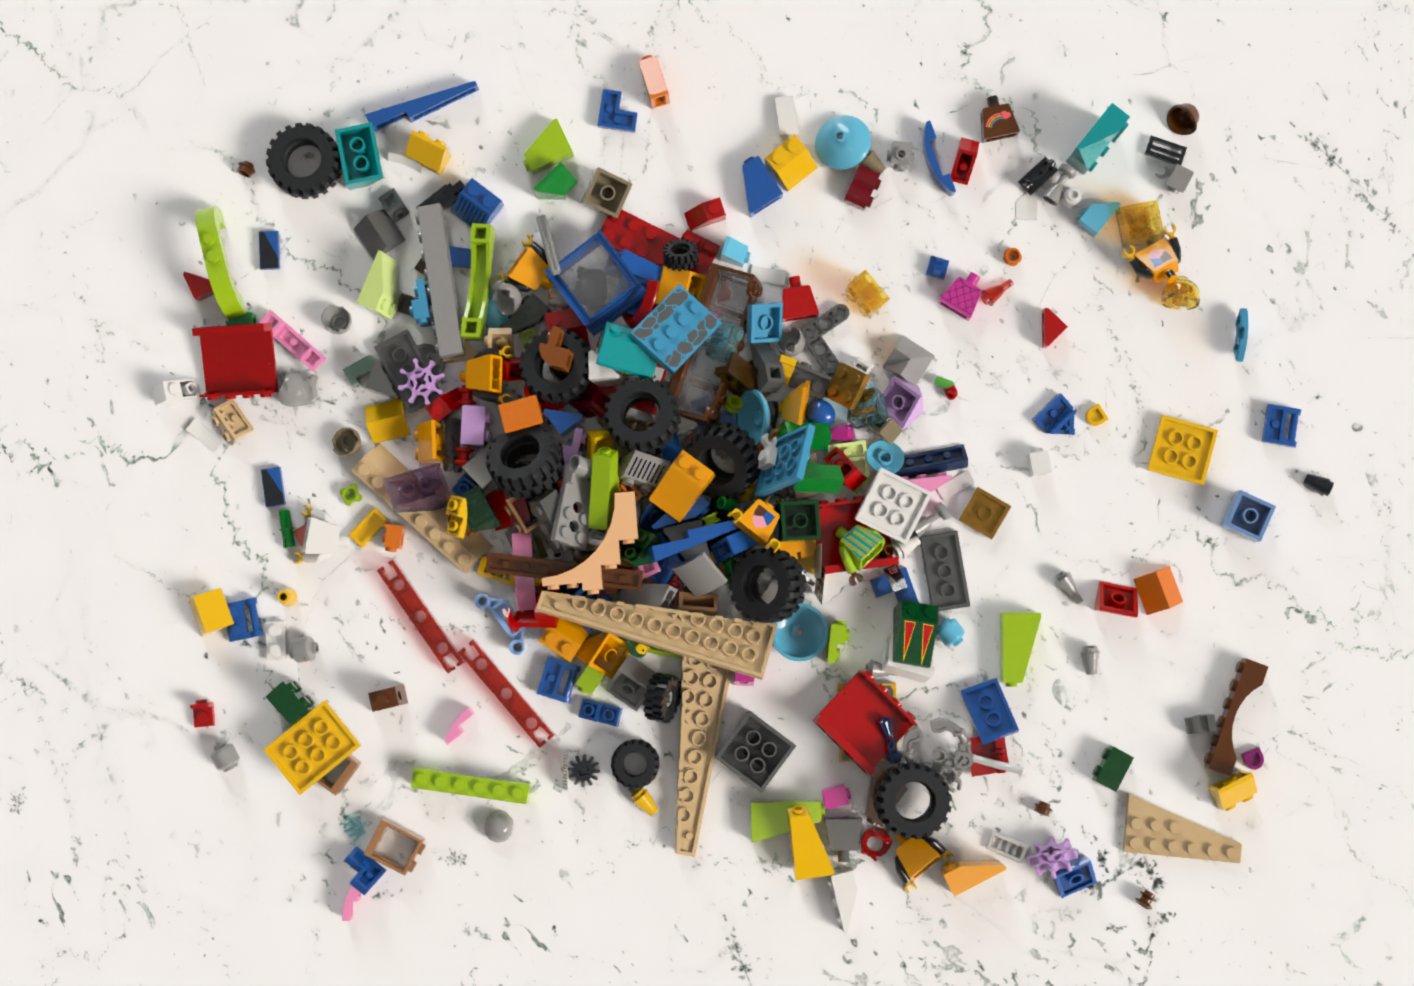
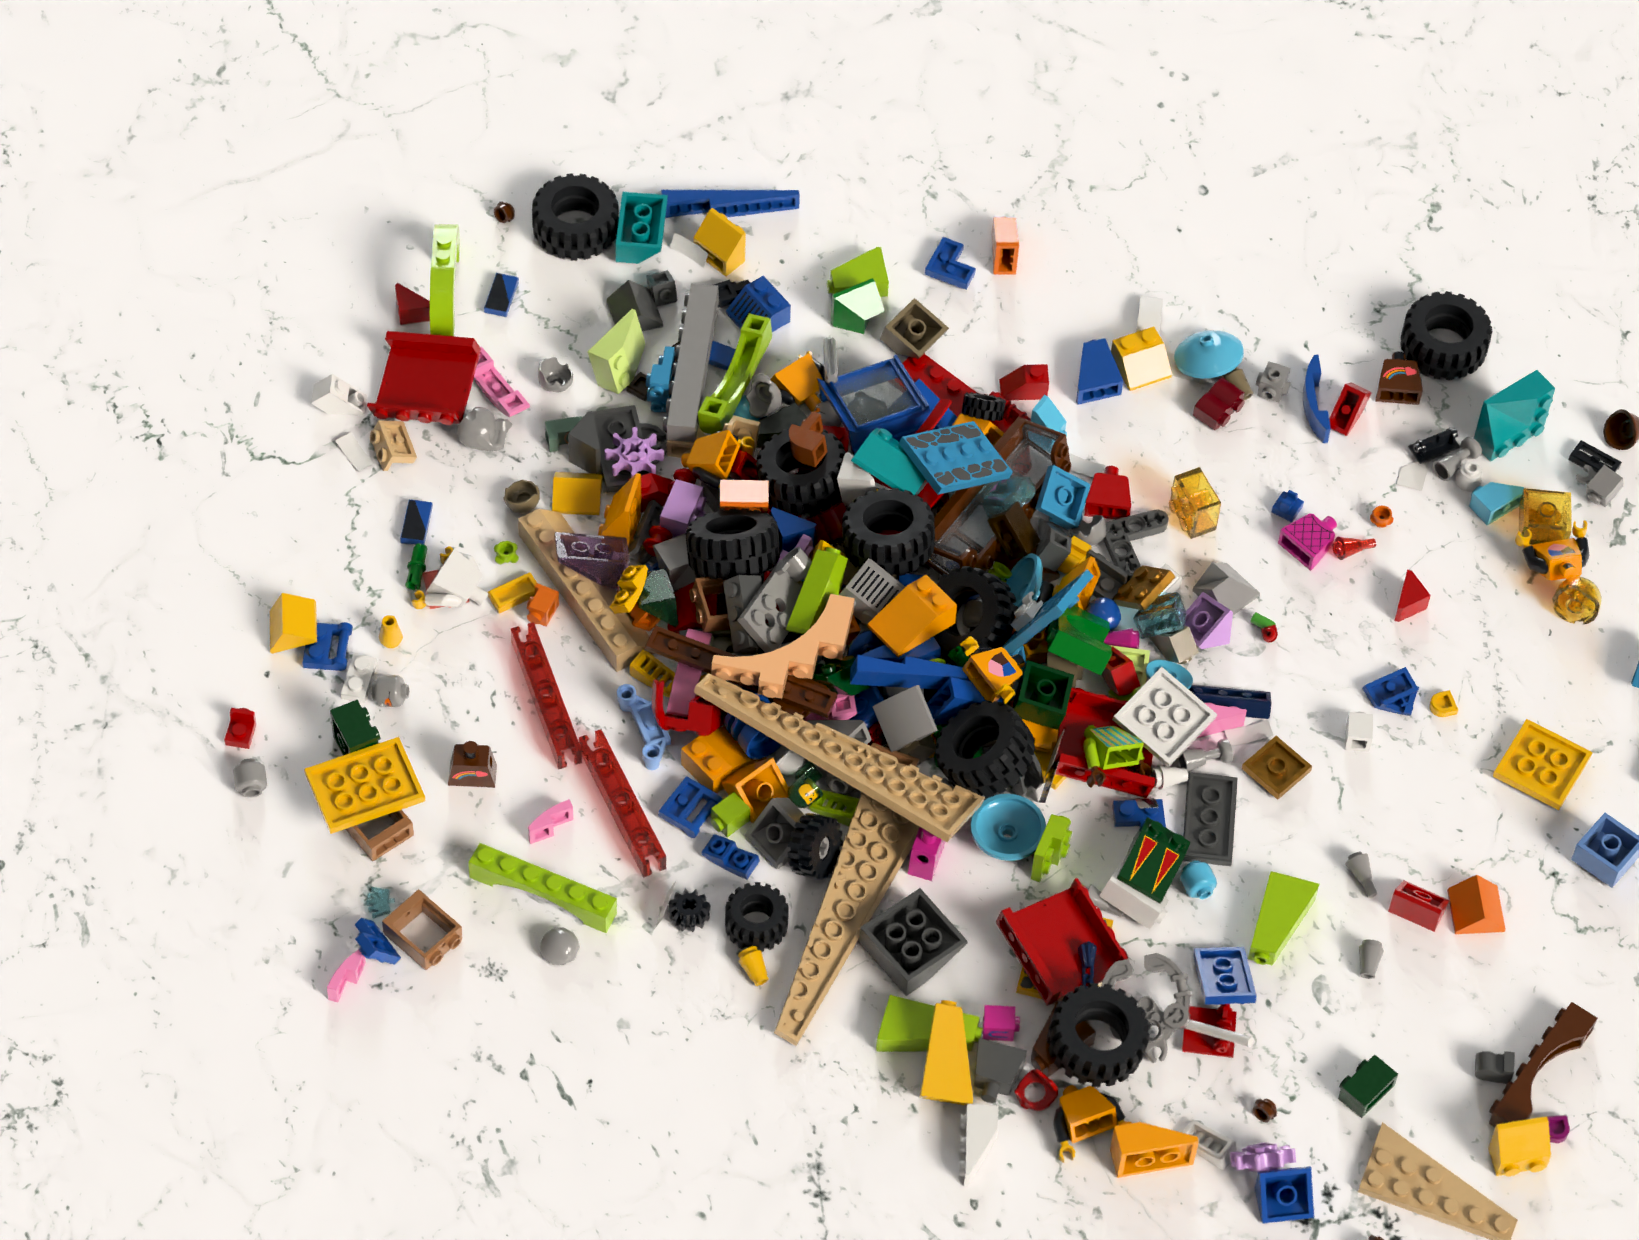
camera: 10 degrees right, 30 degrees down
(1036, 47) = (1449, 313): none -> black tyre

